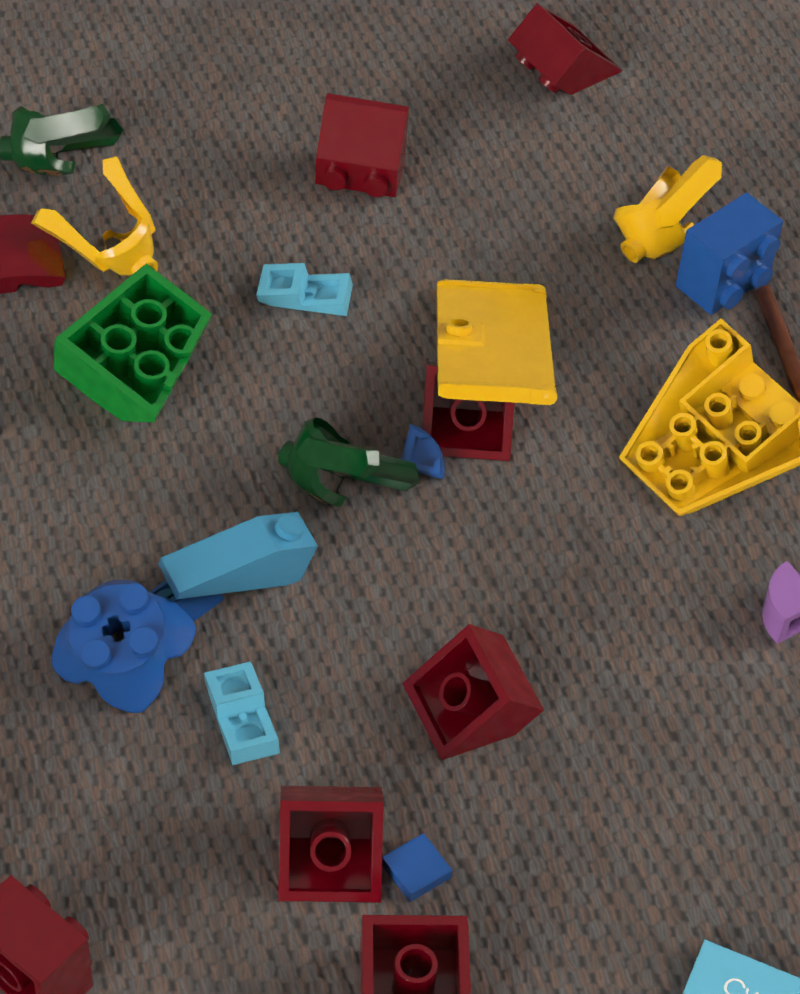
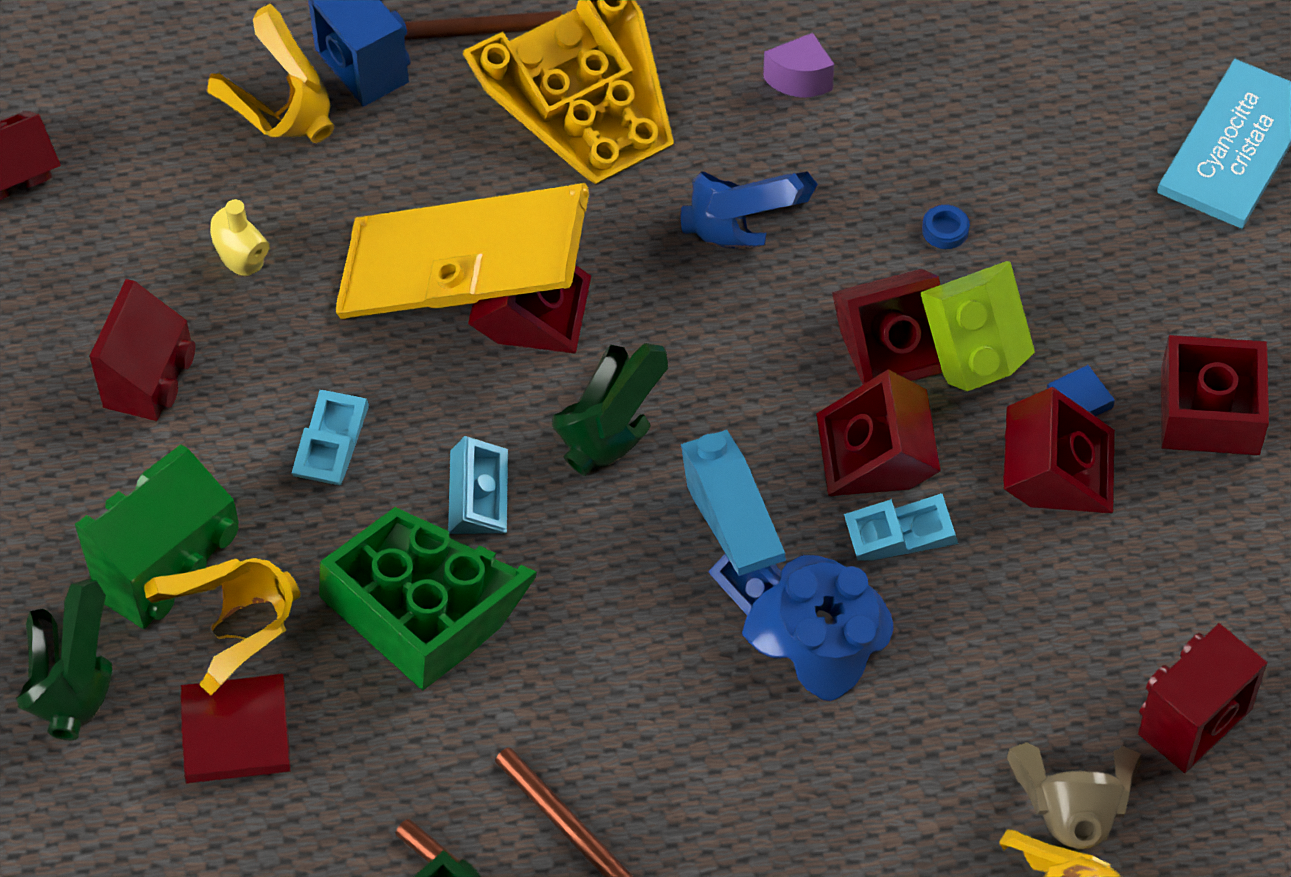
camera: 80 degrees left, 5 degrees up
(177, 169) = (157, 531): none -> green wedge
(263, 393) = (476, 489): none -> medium azure slope
(338, 688) = (878, 438): none -> dark red slope
(425, 452) = (584, 346): blue tile -> none
(467, 754) = (978, 327): none -> lime slope
(495, 204) = (237, 240): none -> light yellow piece
(588, 538) = (720, 201): none -> blue piece
(615, 744) = (945, 226): none -> blue tile

